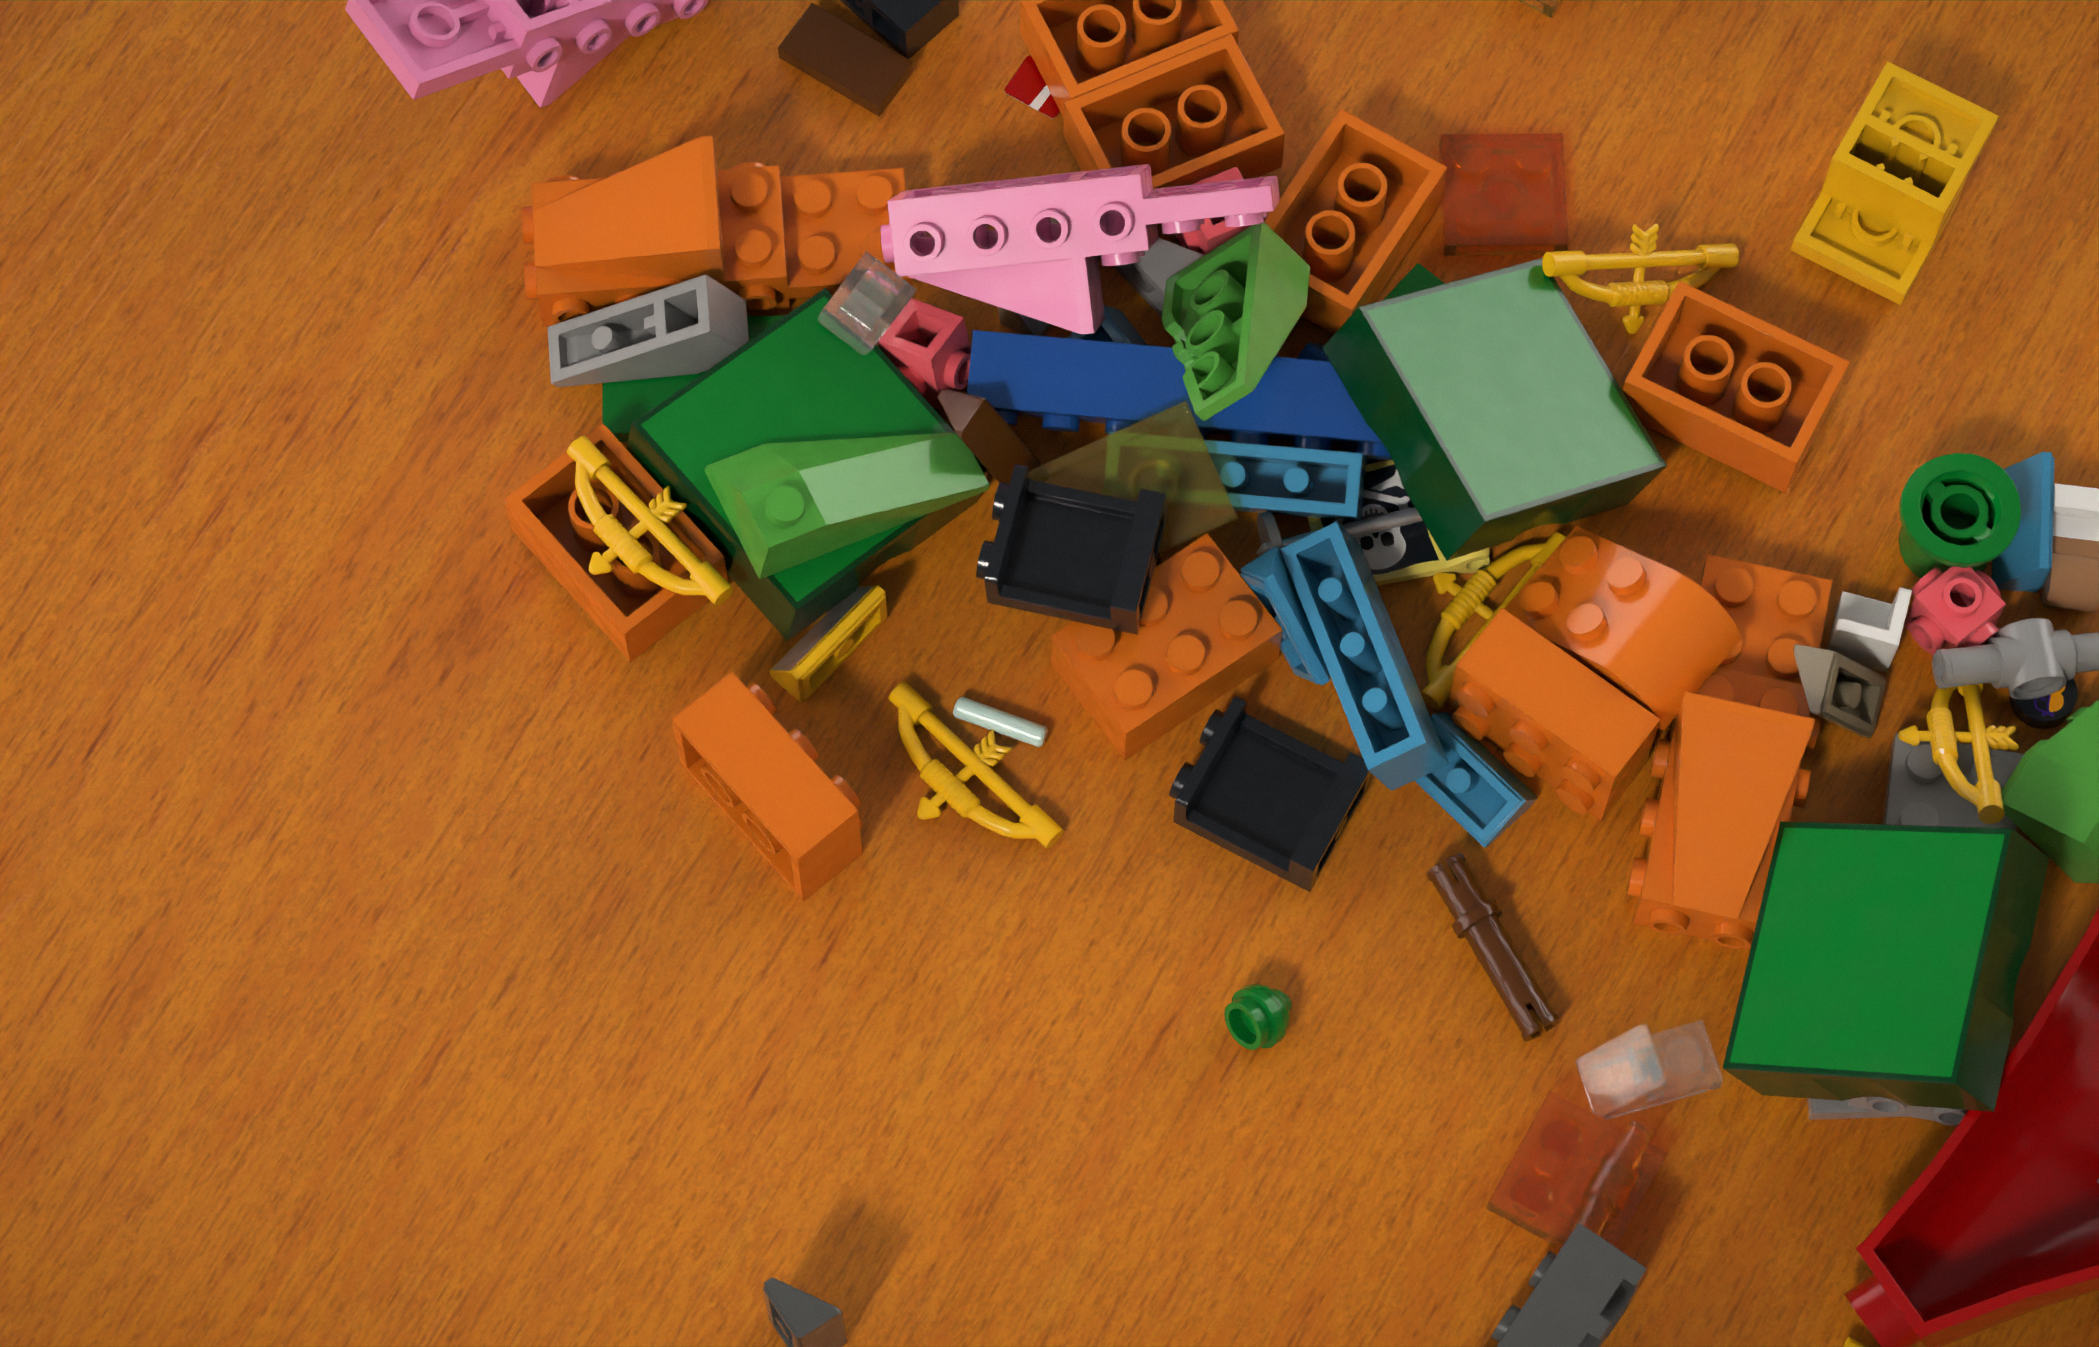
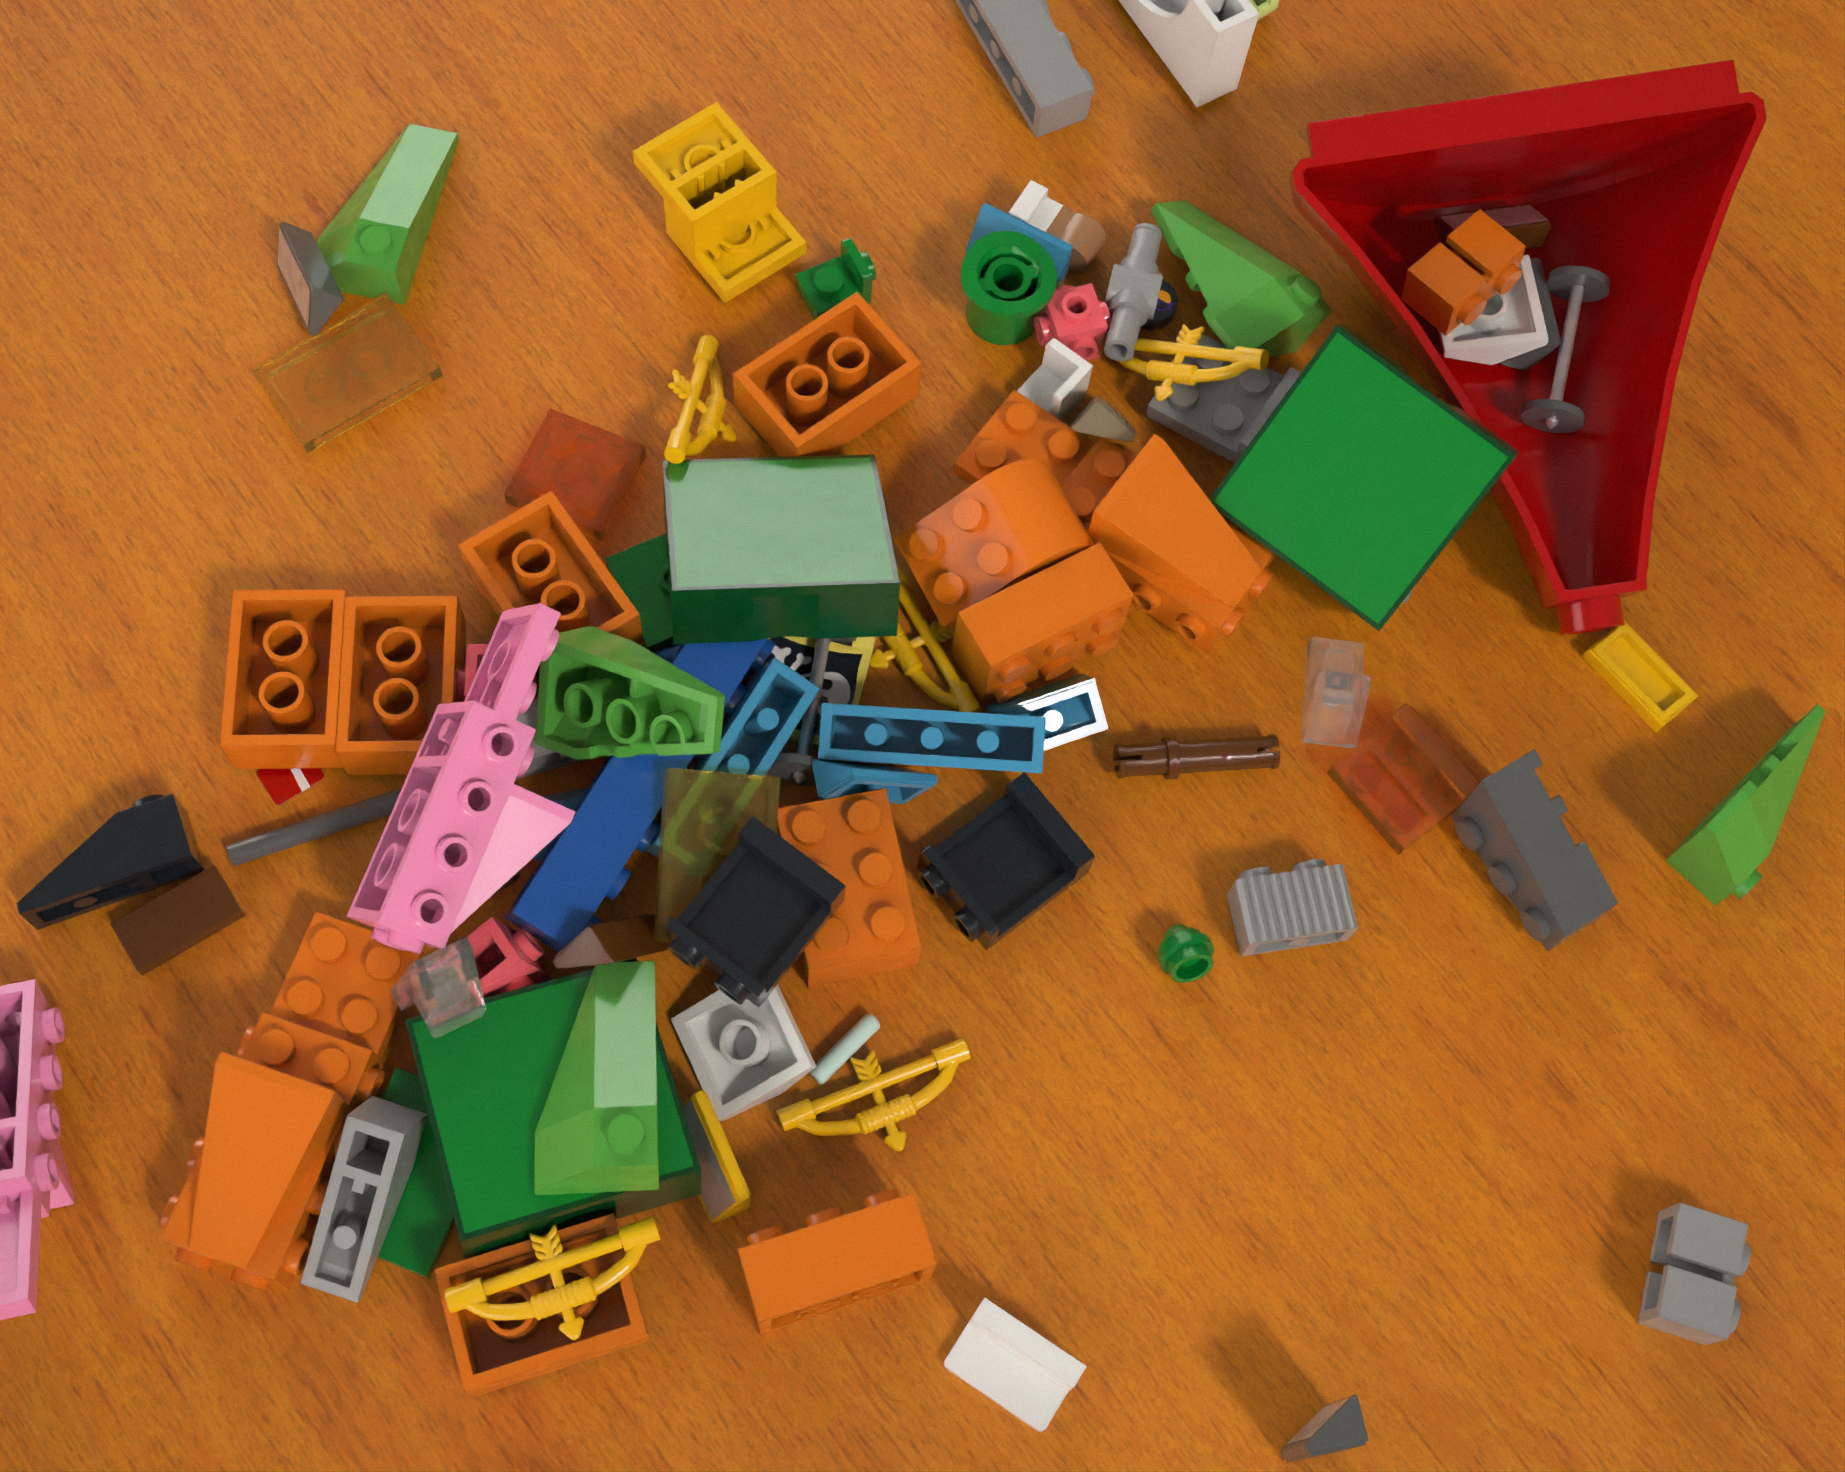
camera: 75 degrees left, 0 degrees up
(749, 1009) = (1013, 1365): none -> white panel
(946, 623) = (743, 1050): none -> white slope
(984, 123) = (312, 828): none -> dark grey bar
(1362, 1106) = (1291, 907): none -> light grey brick
(1878, 351) = (836, 279): none -> green bracket

